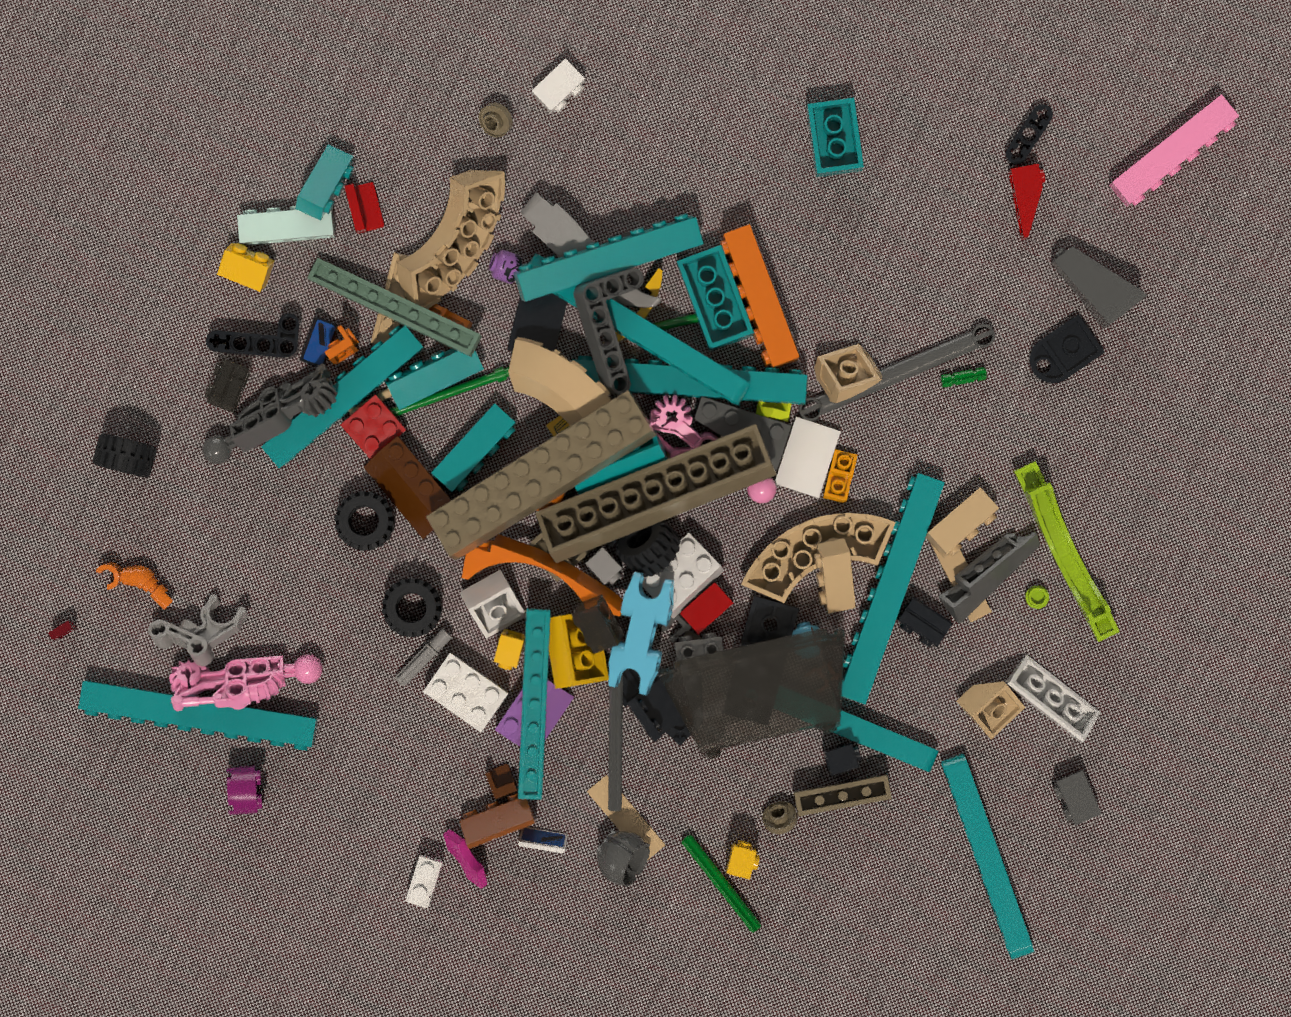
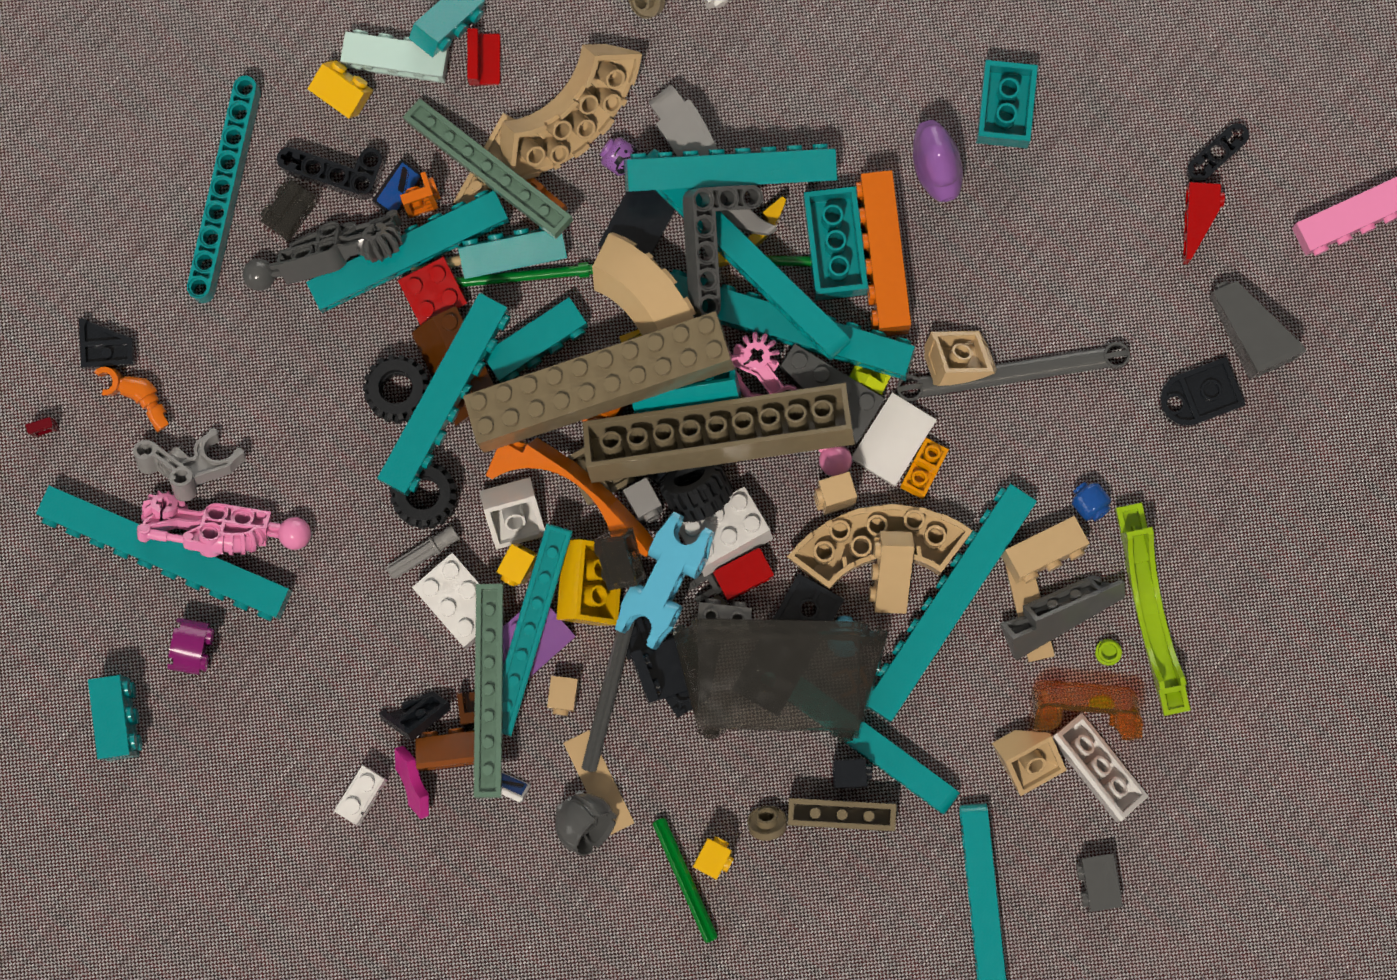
camera: 20 degrees right, 5 degrees down
(97, 546) = (104, 347): none -> black wing
(124, 455) = (157, 255): black tyre -> none
(159, 371) = (221, 177): none -> teal beam
(194, 868) = (114, 718): none -> teal brick
(408, 518) = (444, 394): none -> teal brick
(454, 800) = (416, 715): none -> black wing
(513, 766) = (488, 691): none -> sand green plate
(576, 751) = (562, 695): none -> tan brick
(769, 520) = (835, 494): none -> tan brick
(787, 205) = (937, 161): none -> medium lavender piece
(924, 622) = (977, 648): black brick -> none
(963, 377) = (1084, 394): green axle -> none
(991, 470) = (1091, 501): none -> blue head
(1001, 648) = (1052, 697): none -> clear orange windscreen

